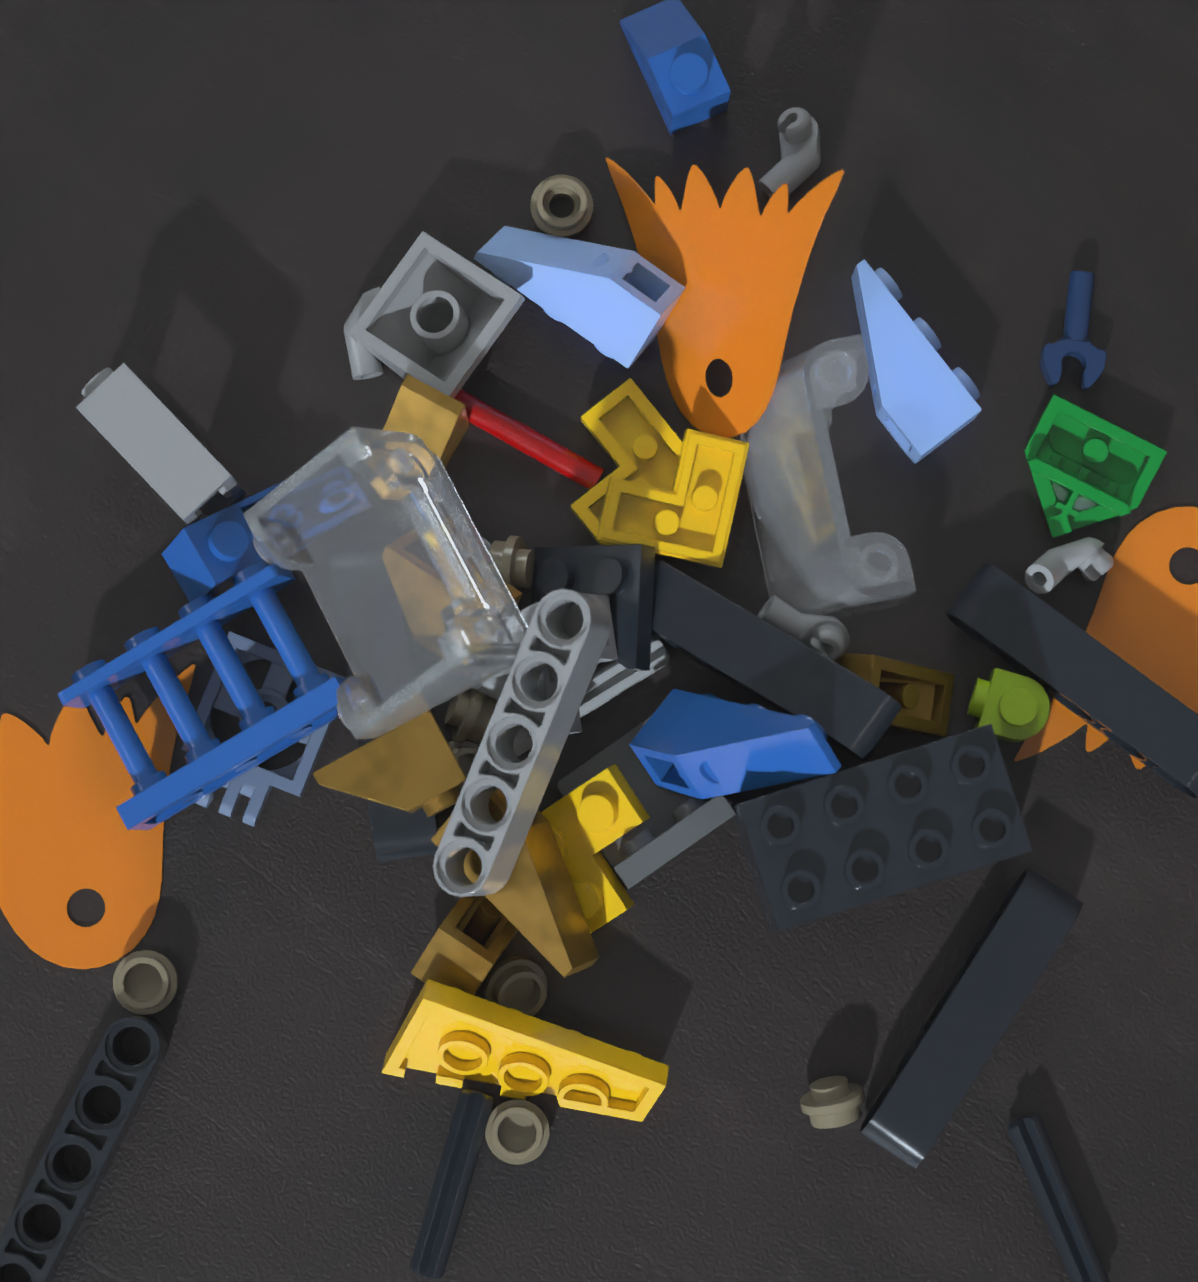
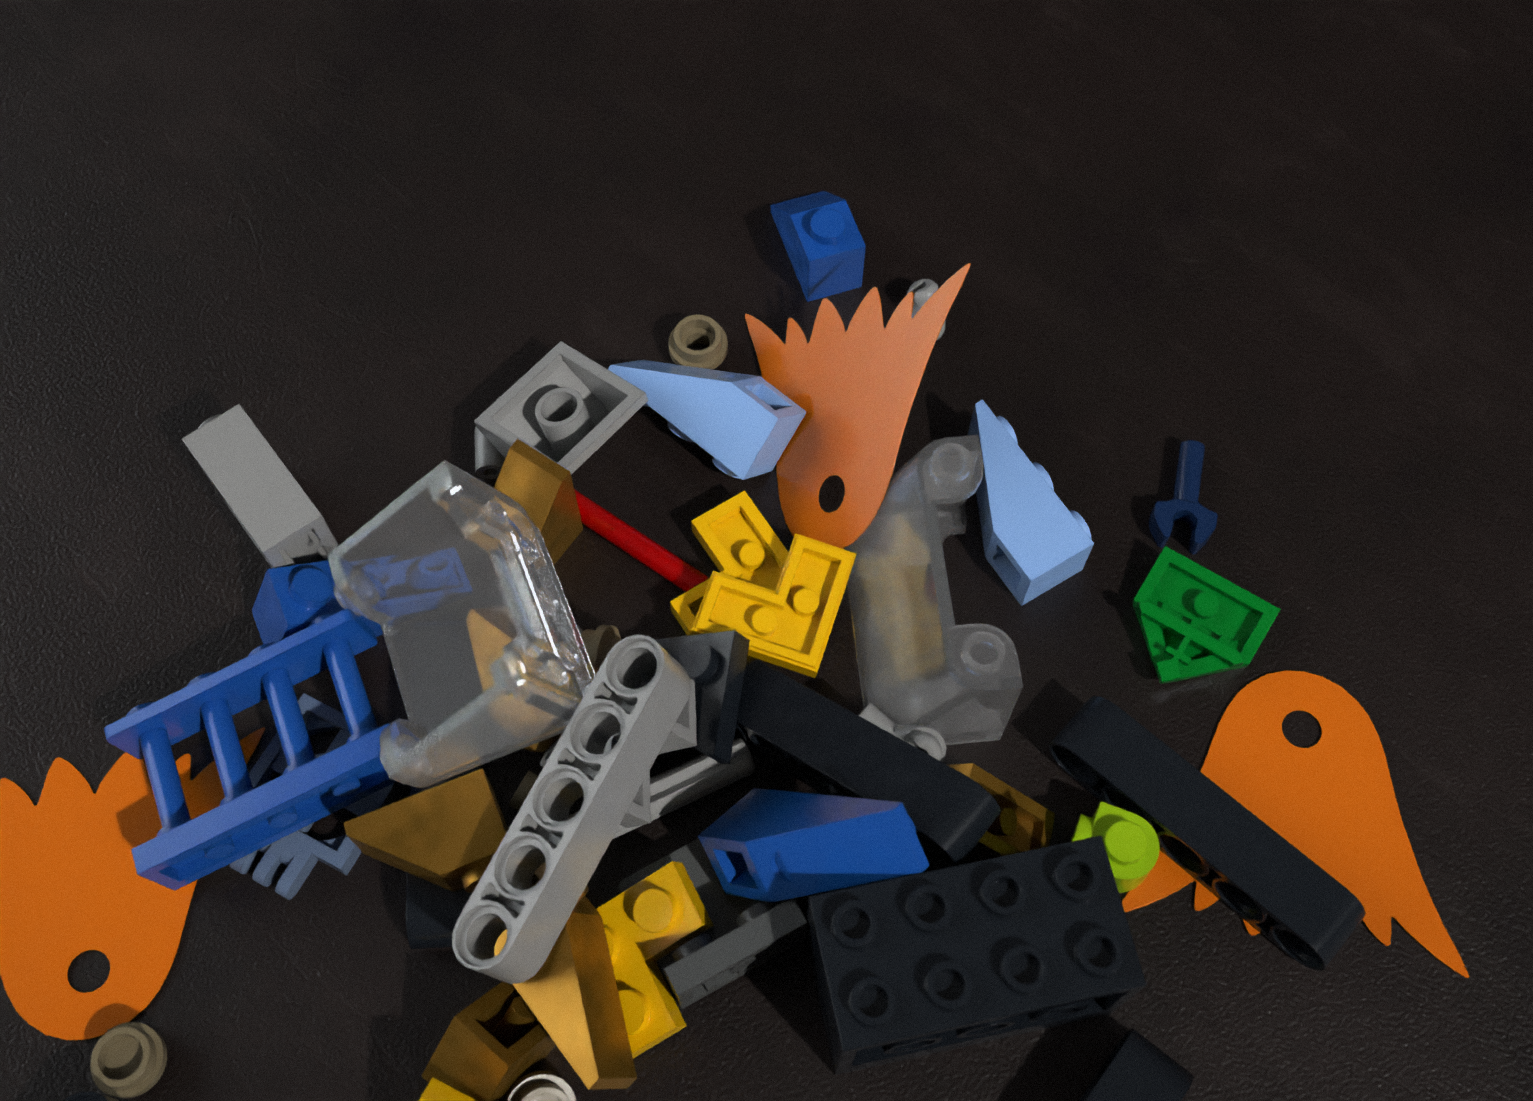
camera: 10 degrees right, 20 degrees down
(1062, 560) = (1173, 706): light grey arm -> none

